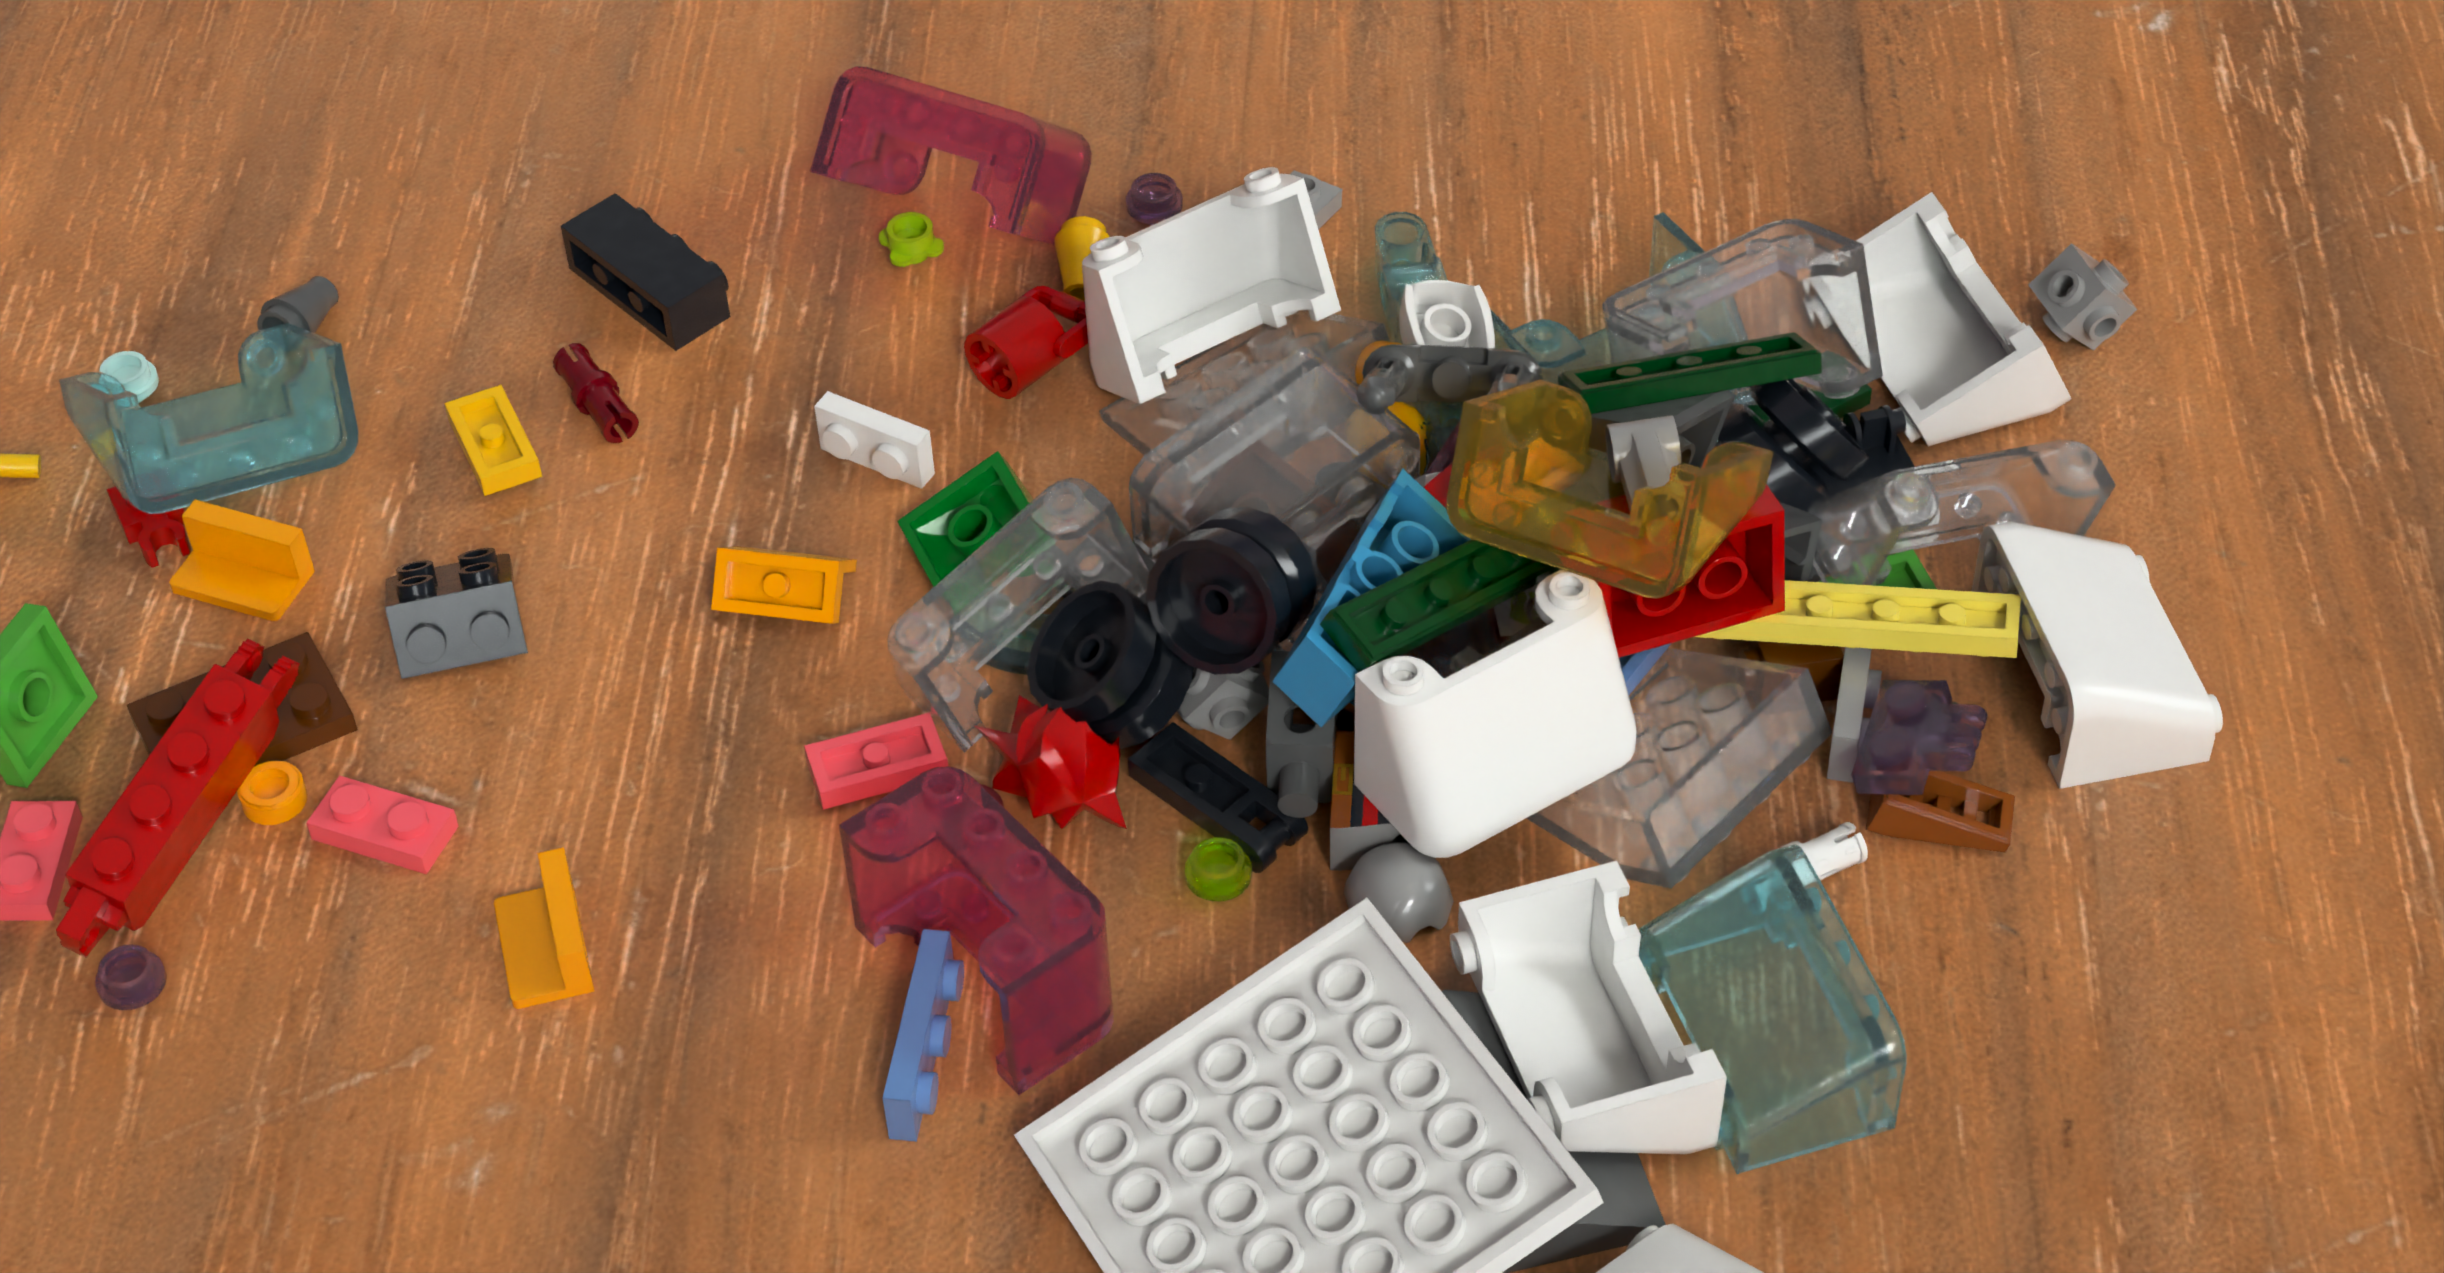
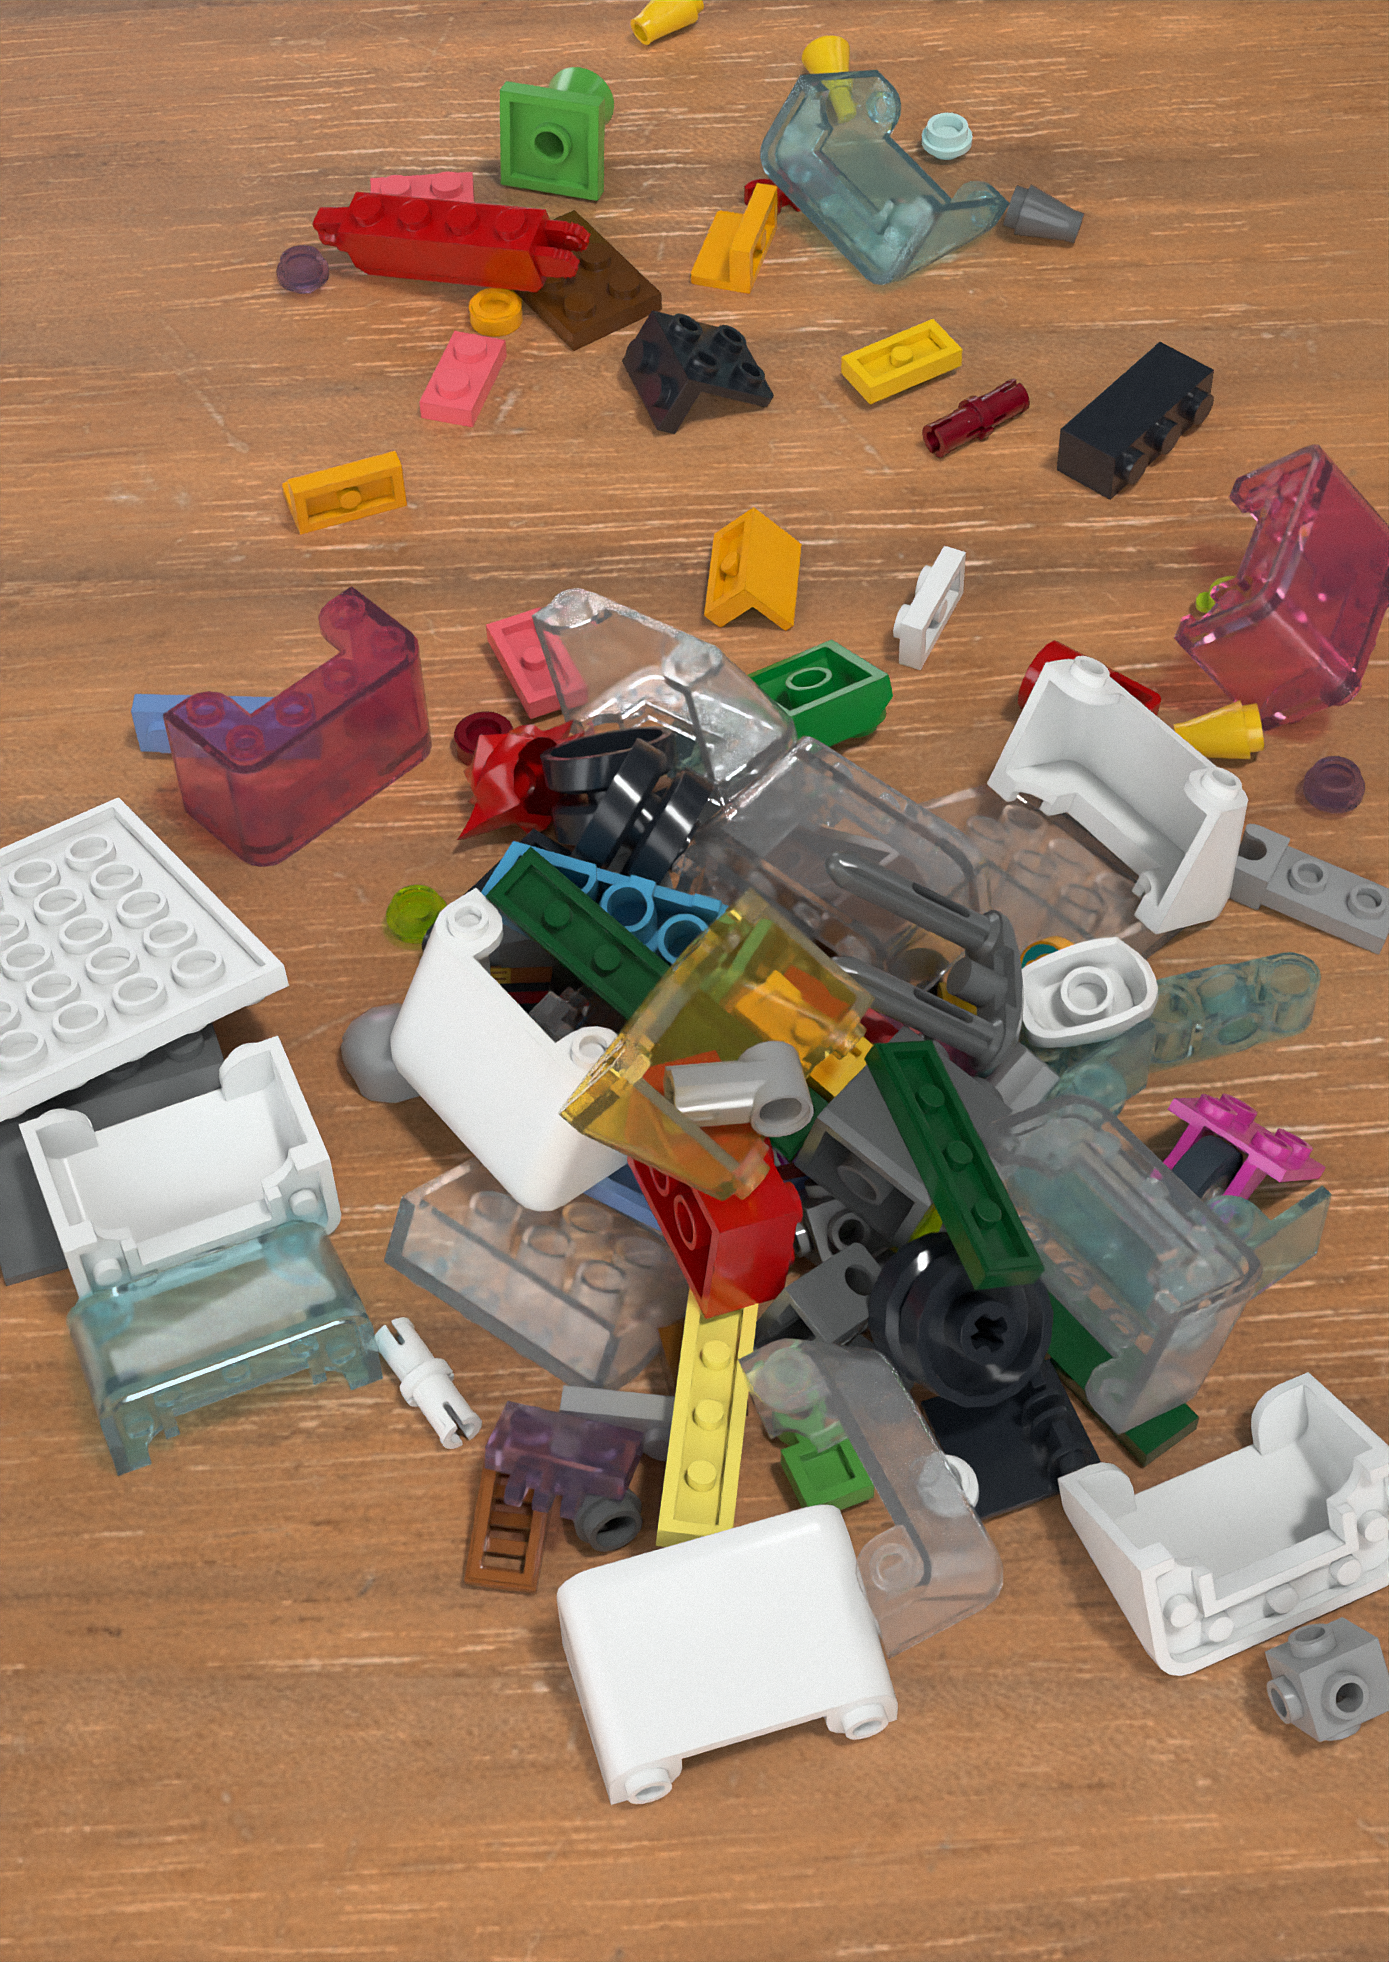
camera: 85 degrees right, 5 degrees up
(1603, 263) = (1215, 1167): none -> dark pink plate

